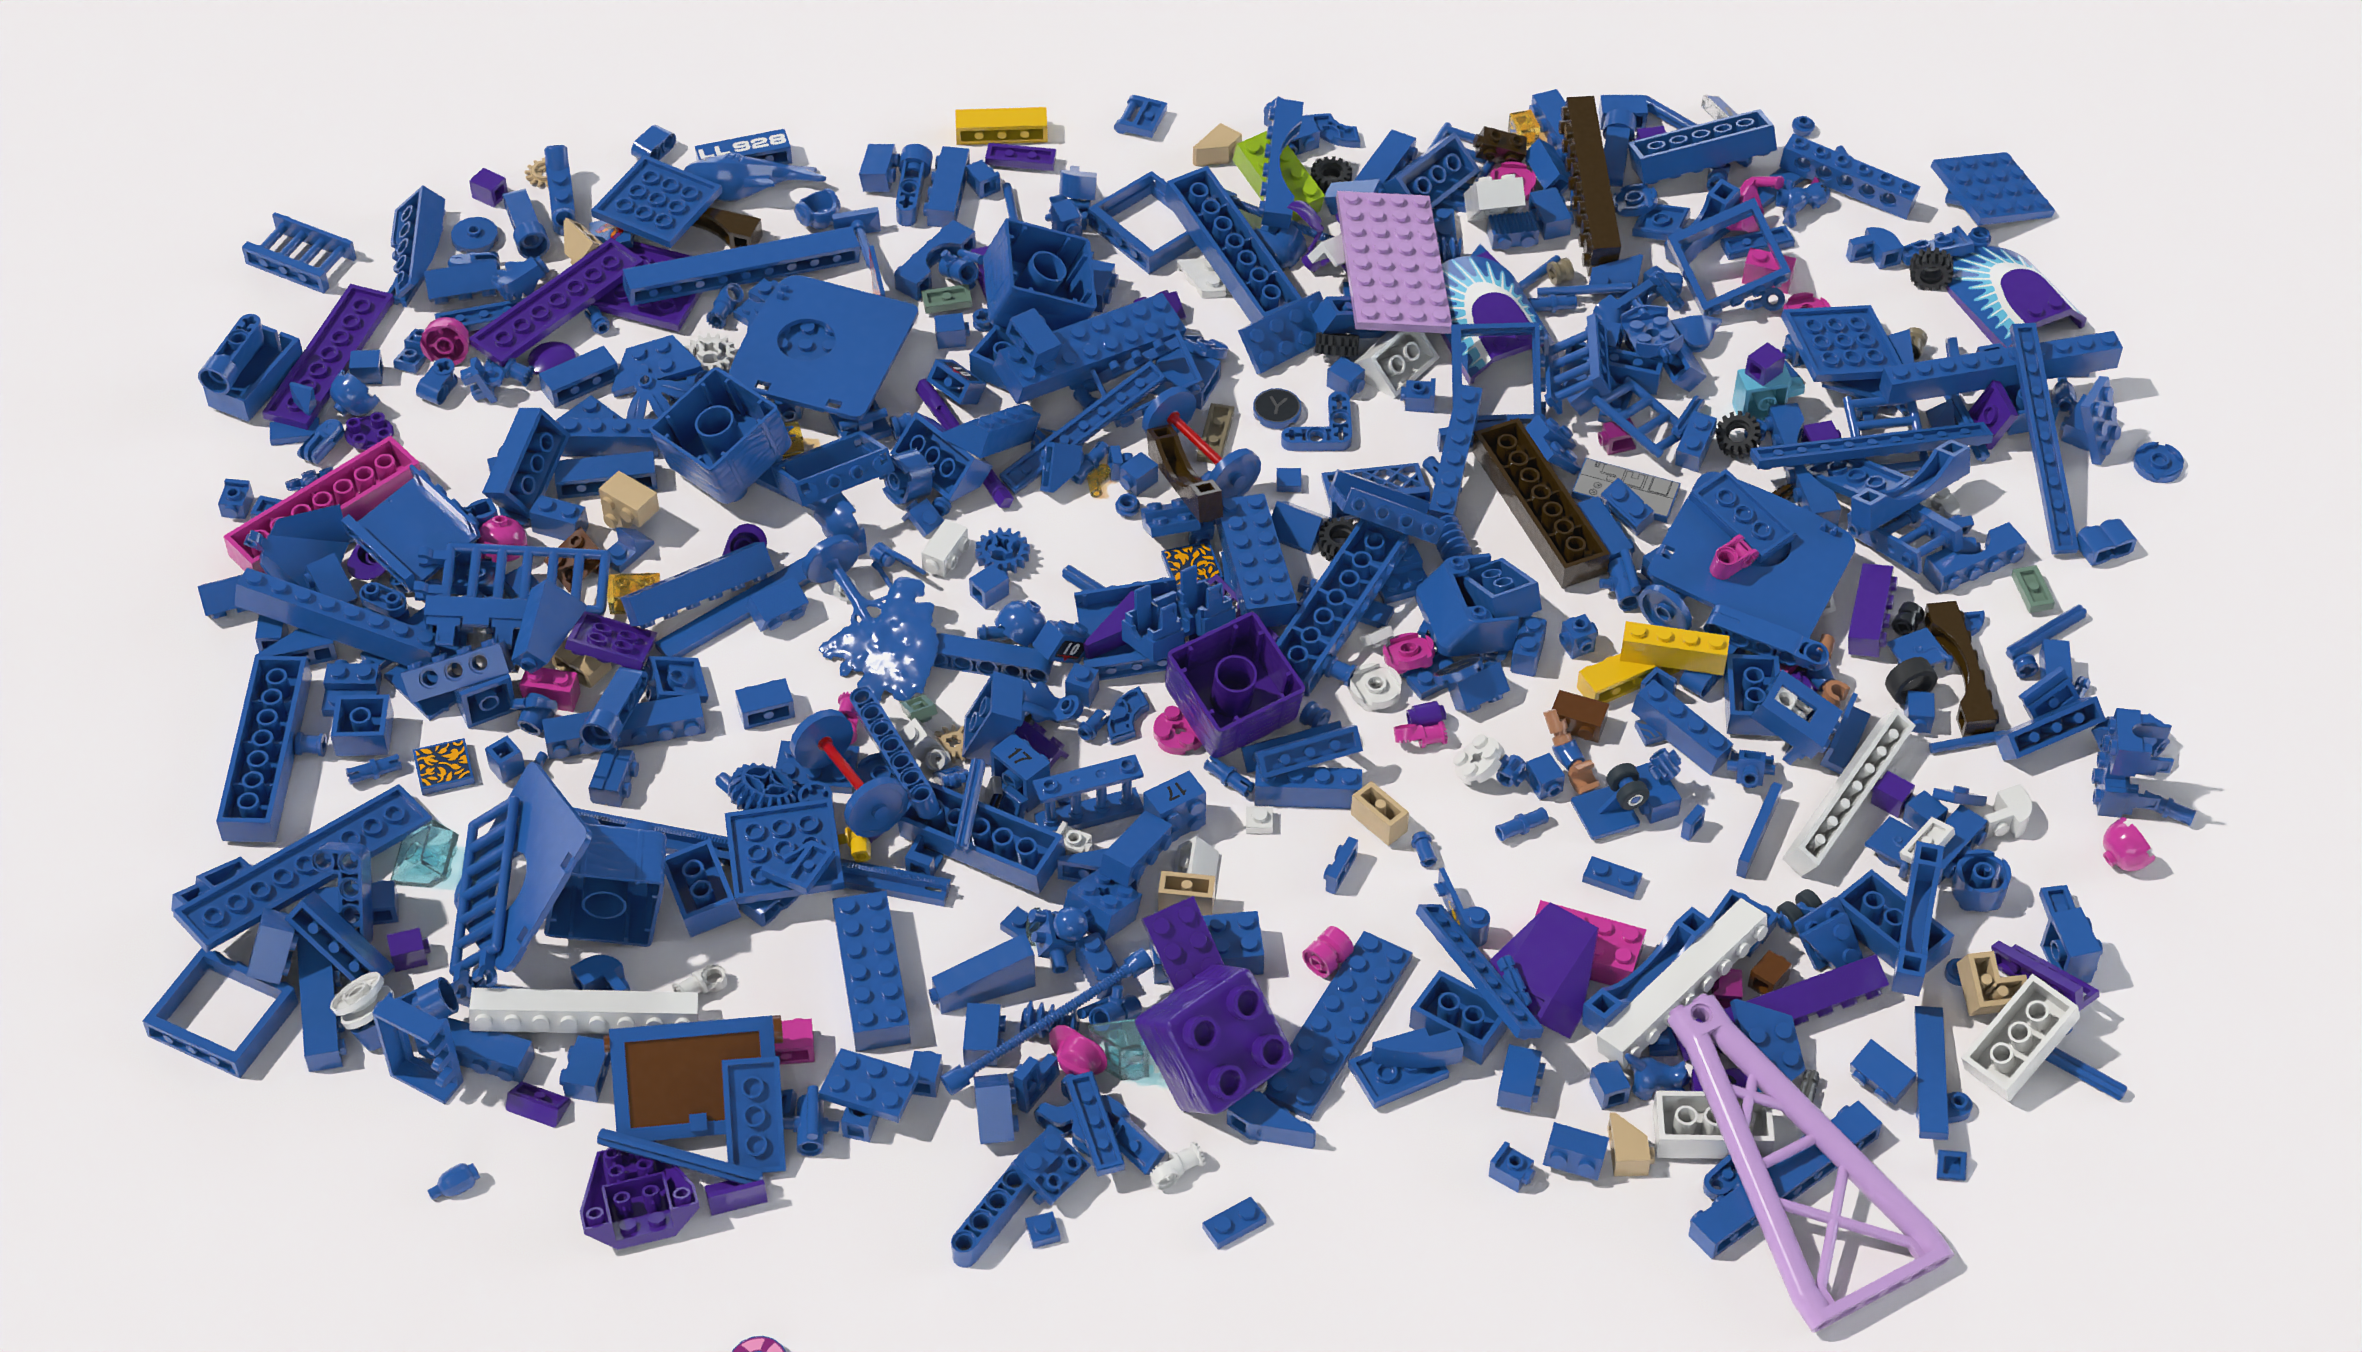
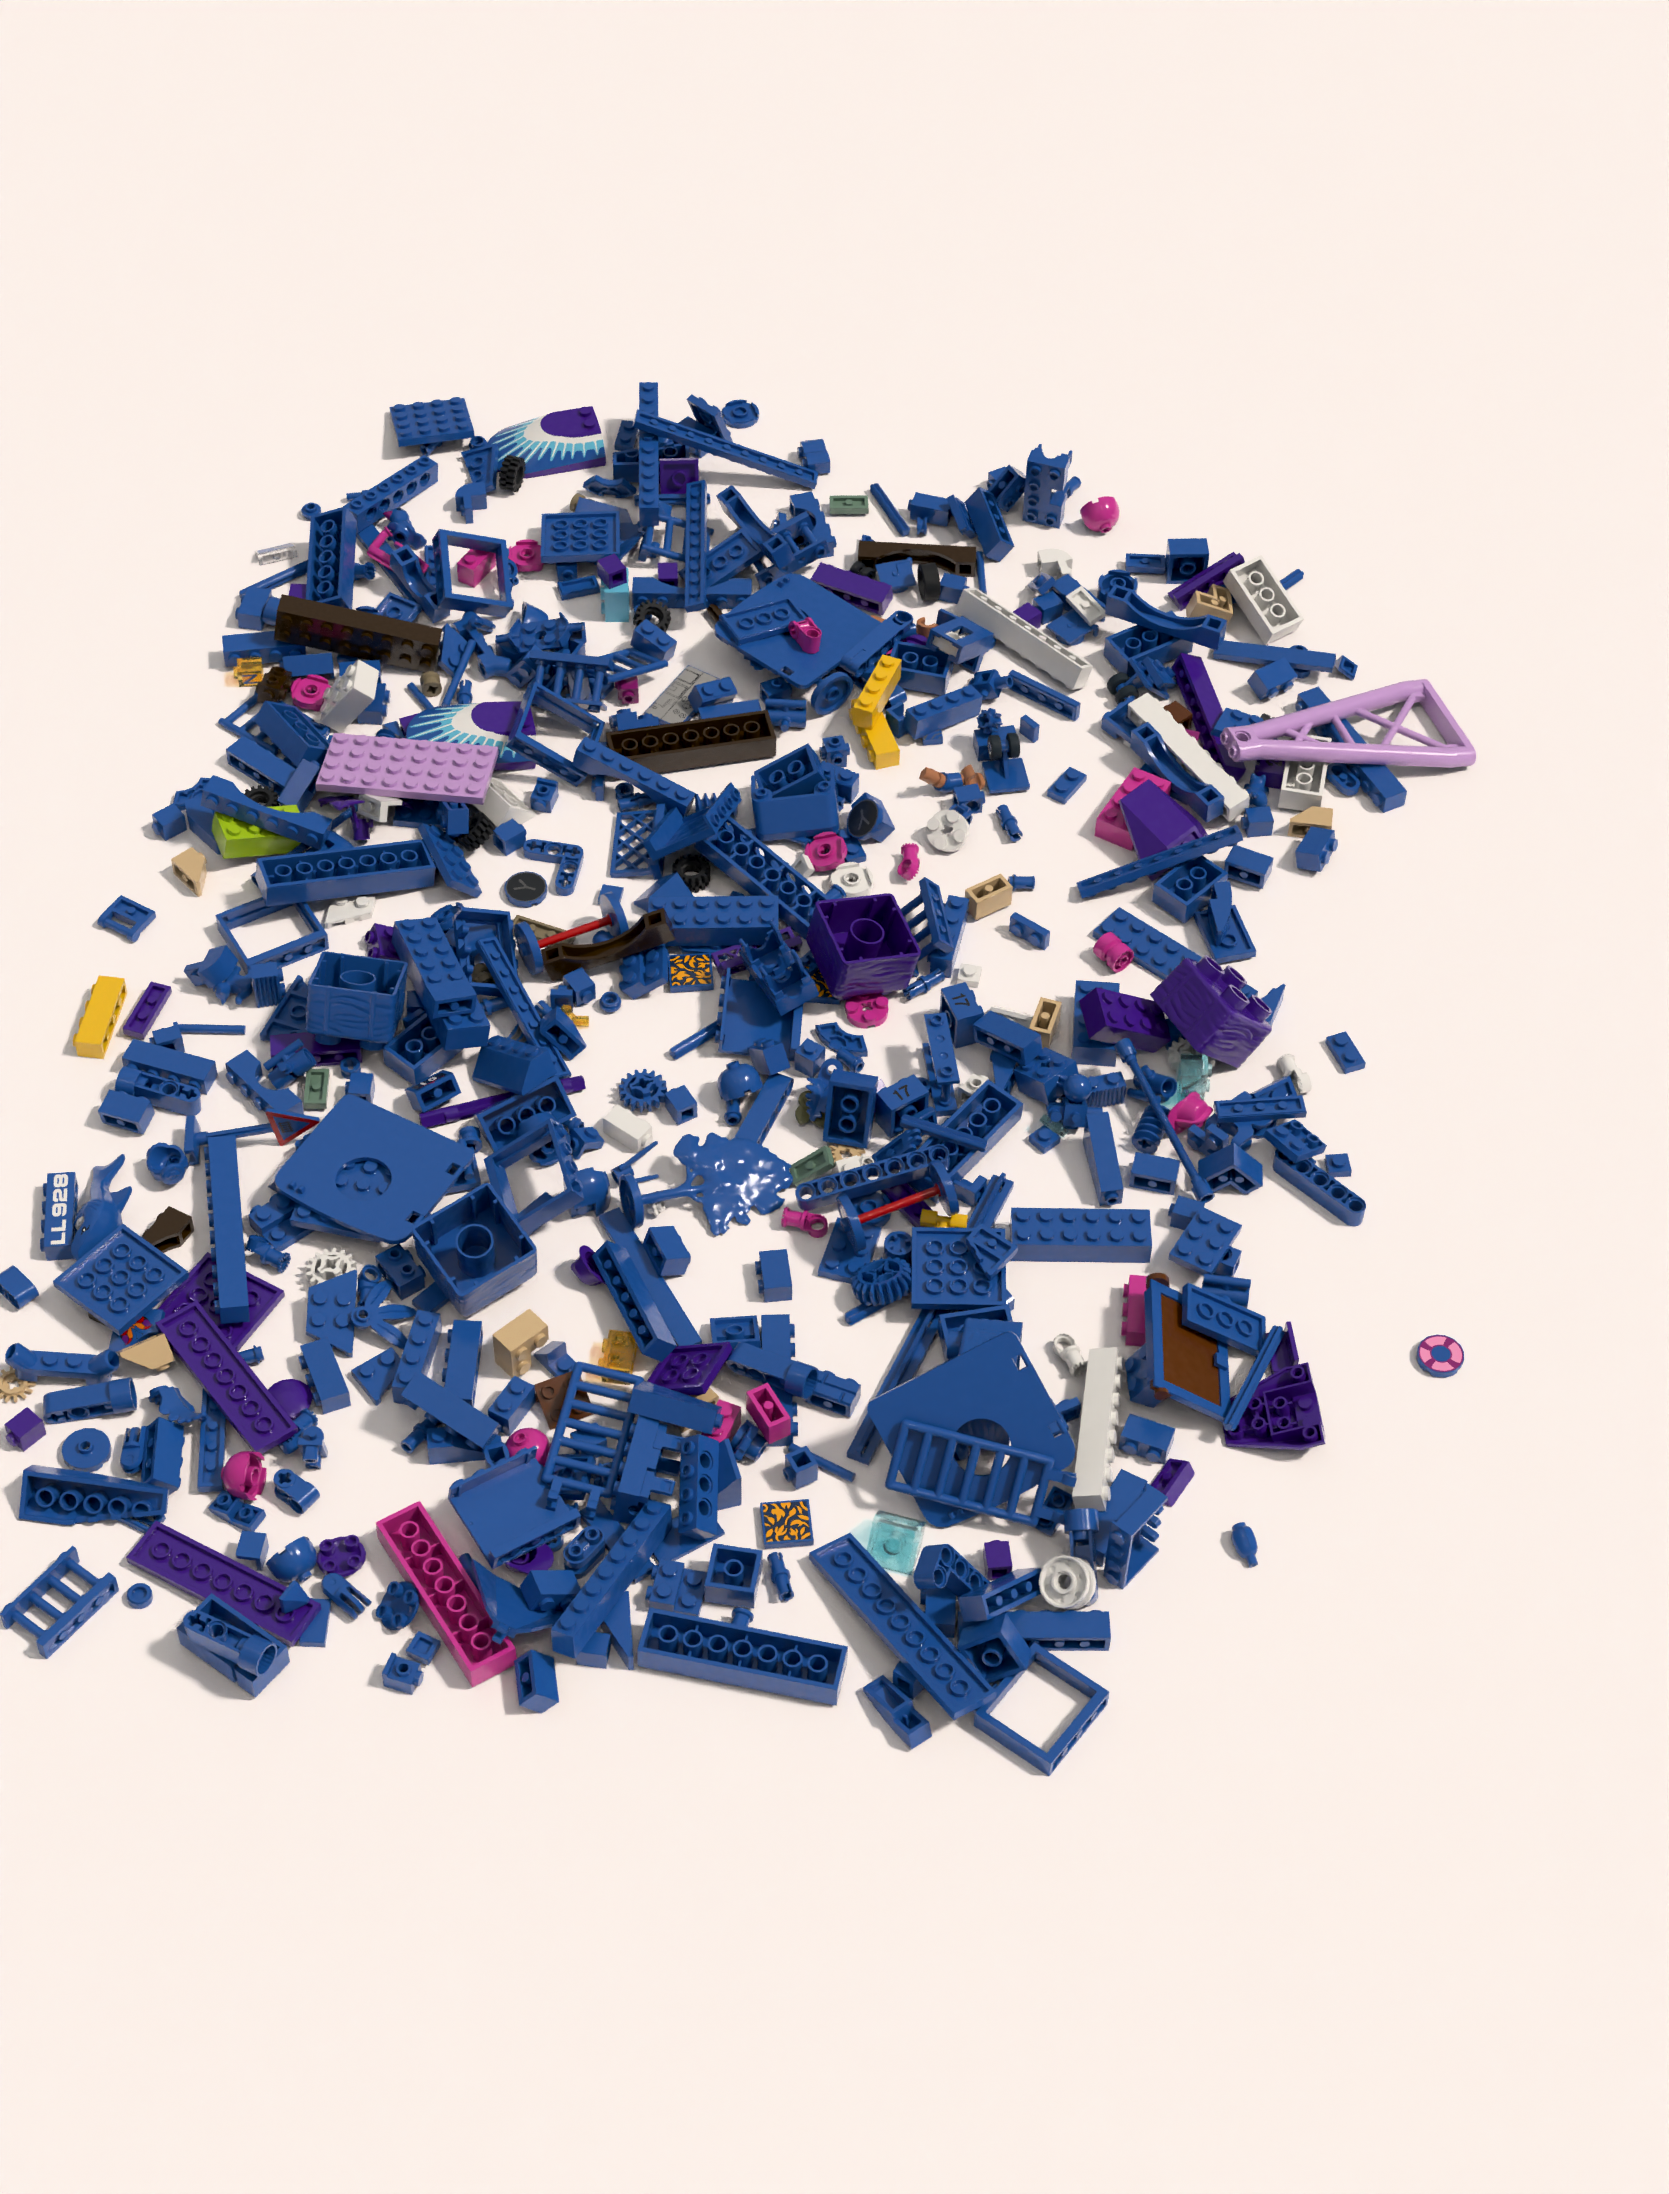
camera: 80 degrees left, 0 degrees up
(315, 306) = (139, 1596): none -> blue tile
(551, 707) = (768, 1413): none -> dark pink brick
(1109, 633) = (756, 1013): dark purple slope -> none
(1426, 714) = (890, 856): dark purple brick -> none
(1472, 920) = (1071, 873): blue door -> none
(1511, 1168) = (1325, 885): blue brick -> none
(1513, 978) = (1175, 839): blue axle -> none
(1583, 715) = (908, 769): reddish brown brick -> none
(1695, 405) = (623, 643): blue axle -> none

